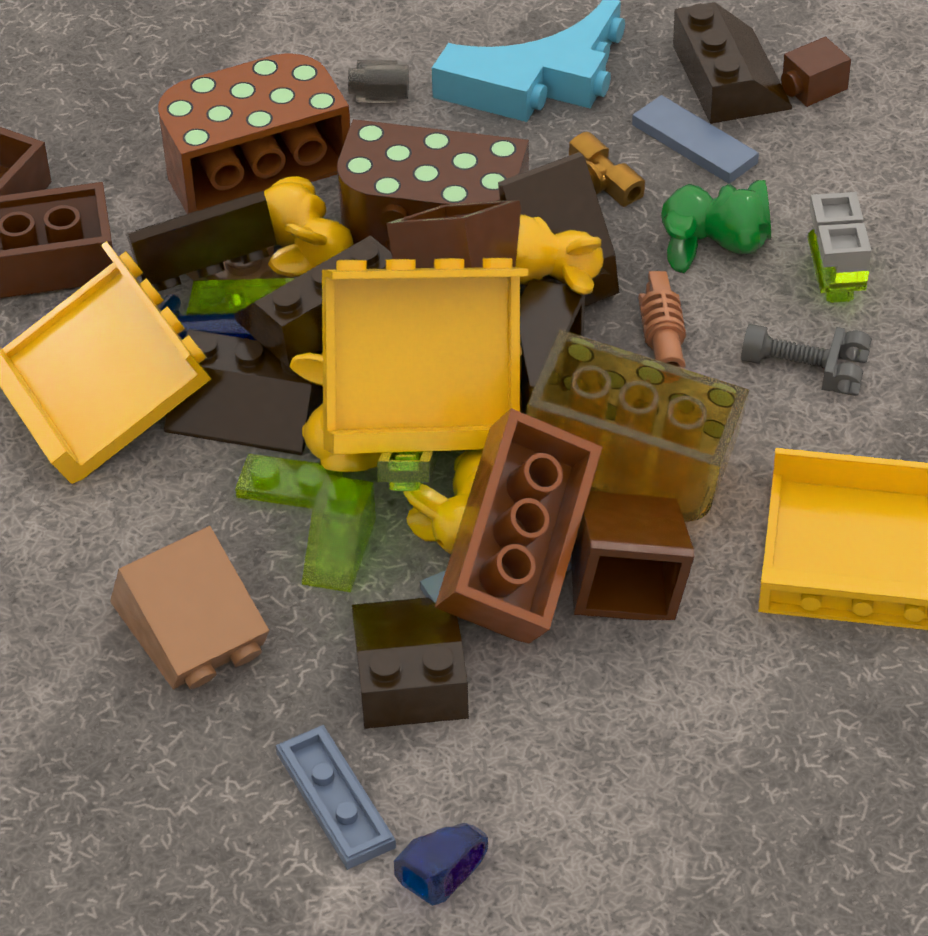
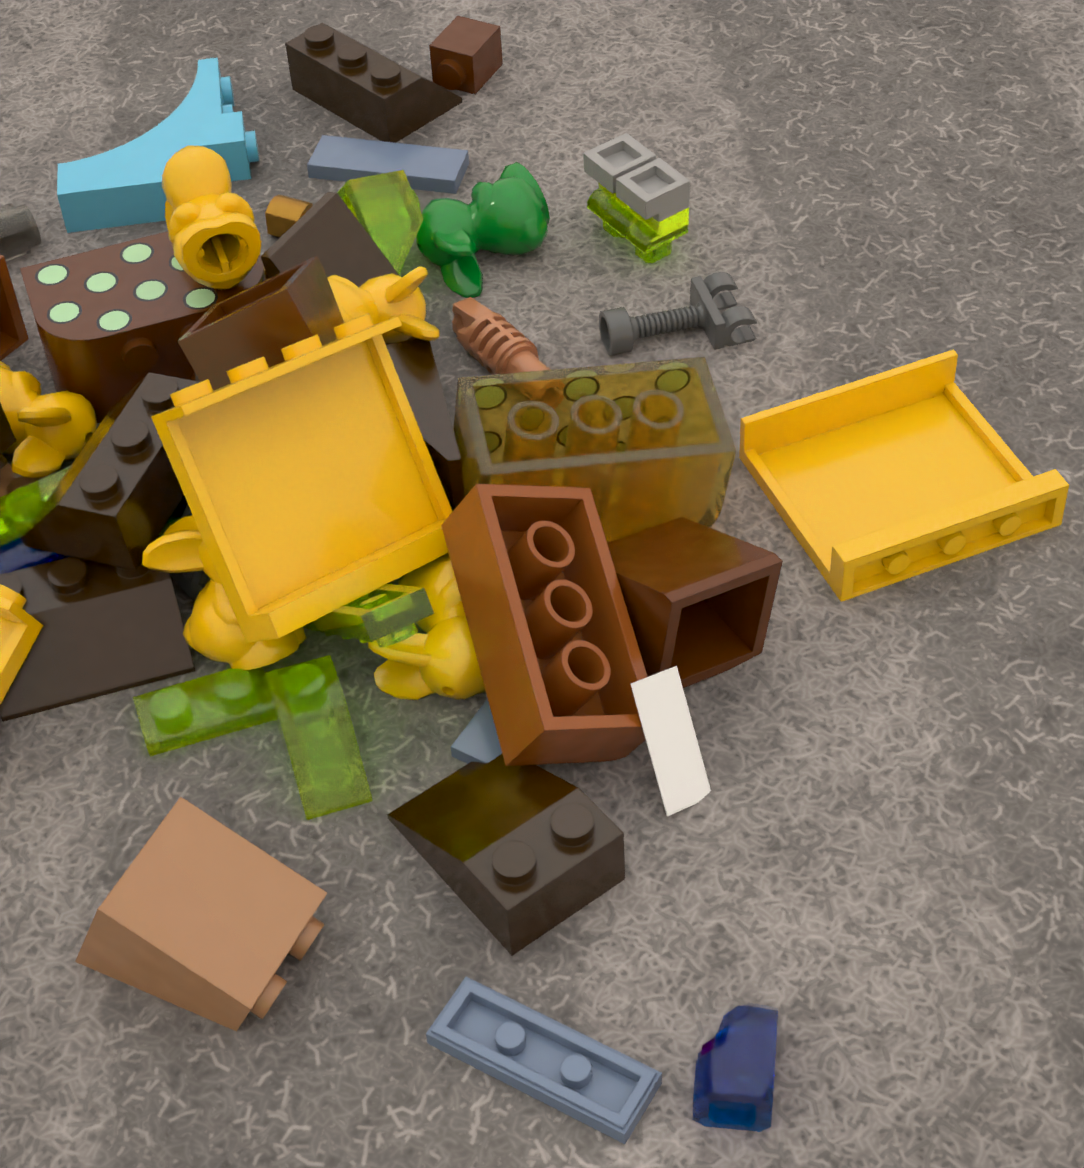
camera: 30 degrees left, 0 degrees up
(482, 144) = (207, 222): none -> yellow animal
(551, 642) = (671, 740): none -> white sticker
(635, 186) = (386, 211): none -> clear neon green slope

